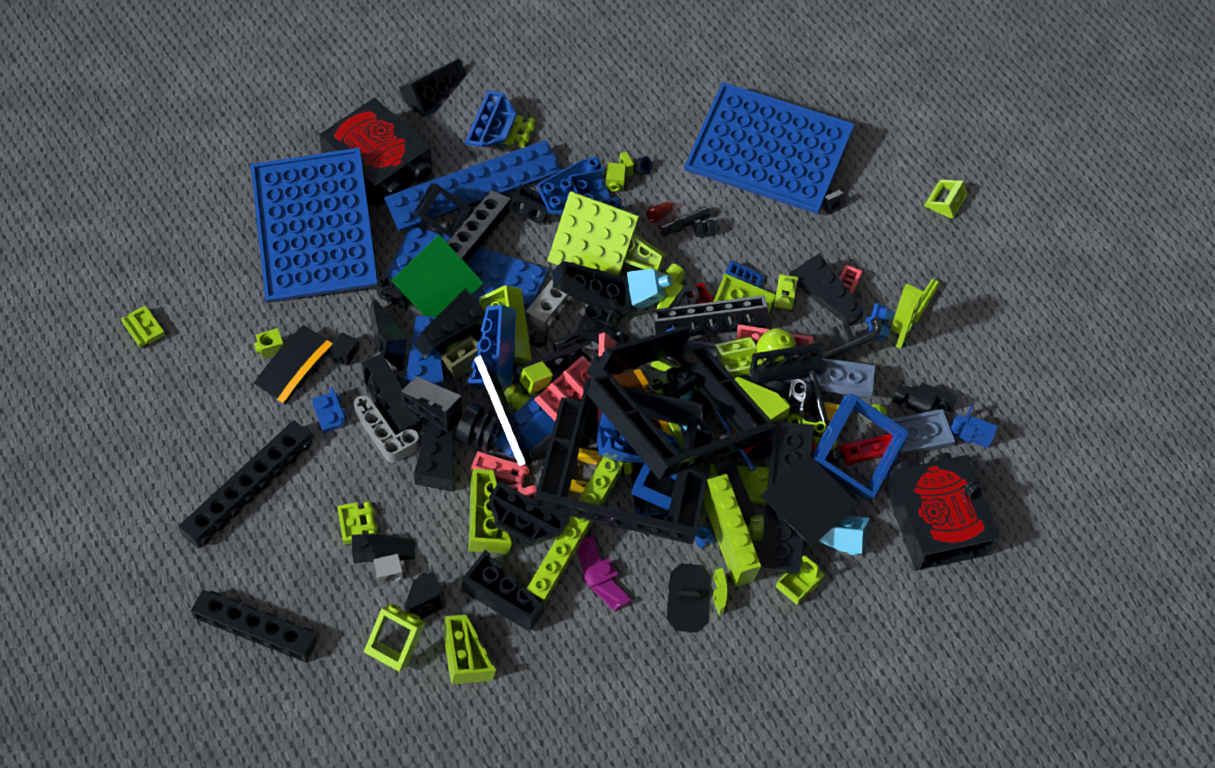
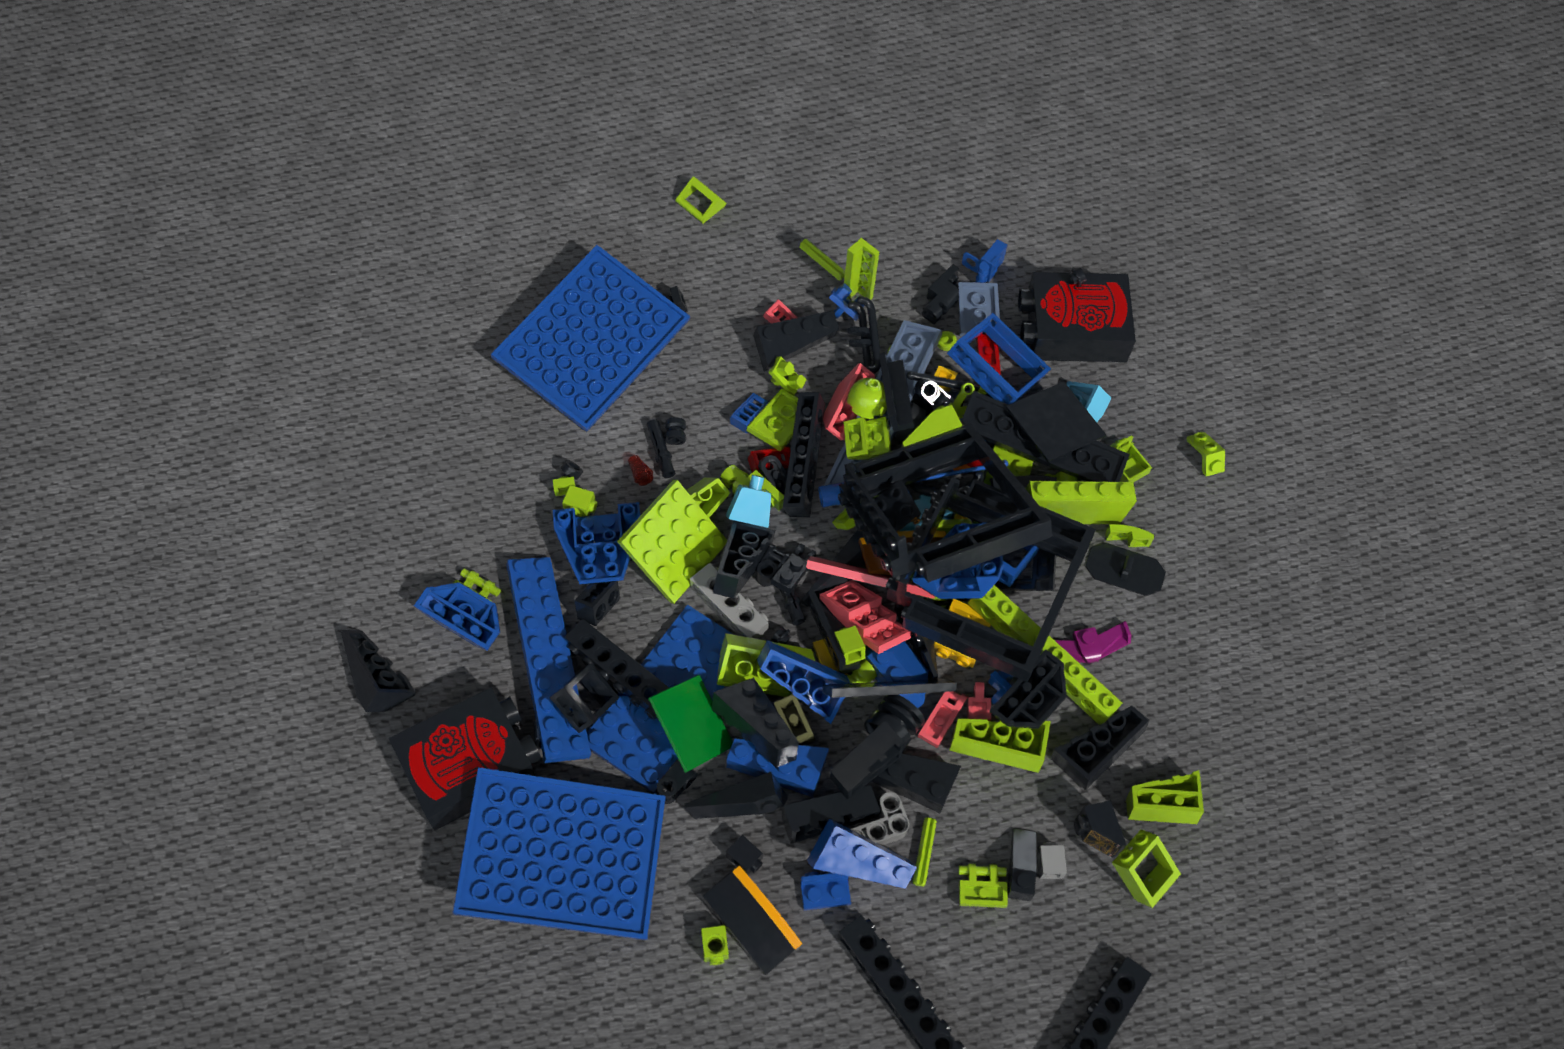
camera: 75 degrees left, 5 degrees up
(354, 420) = (853, 855): none -> wedge
(377, 476) = (924, 852): none -> lime axle
(834, 649) = (1212, 453): none -> lime bracket

